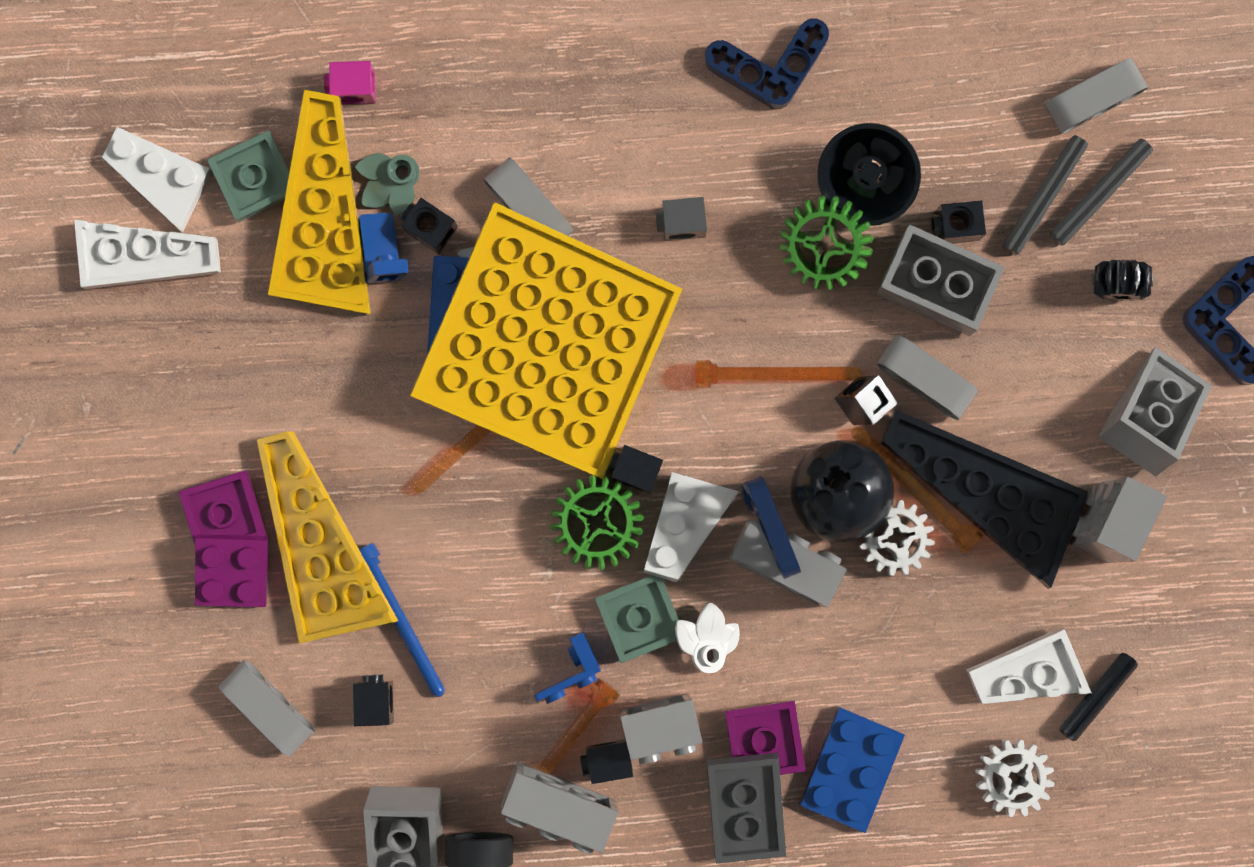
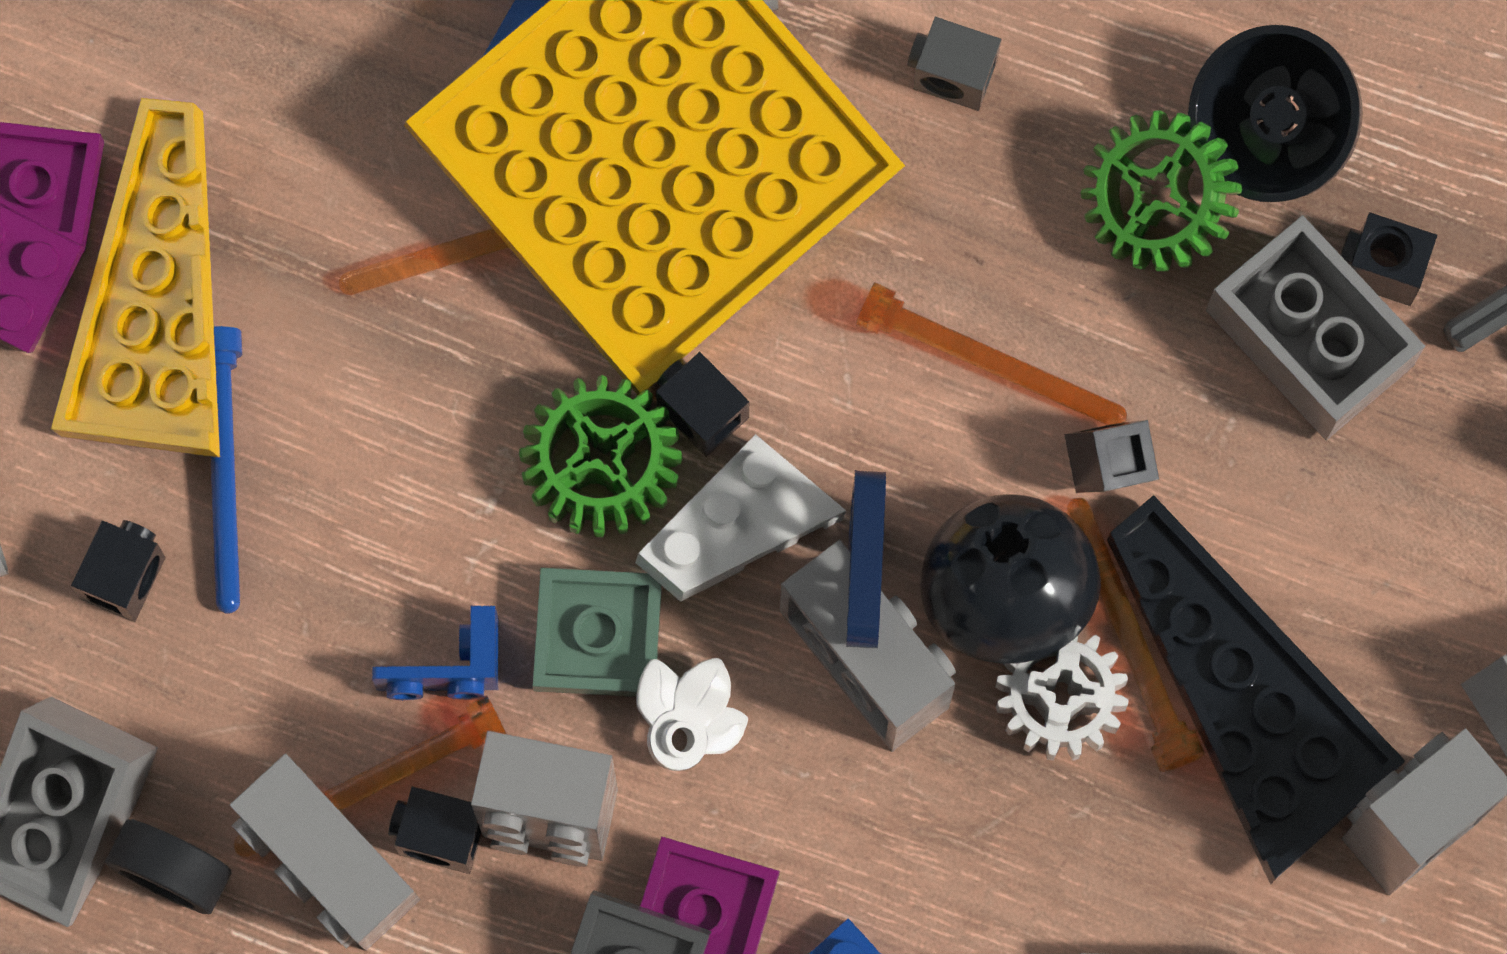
camera: 25 degrees right, 10 degrees down
(927, 377) = (1228, 471): light grey beam -> none

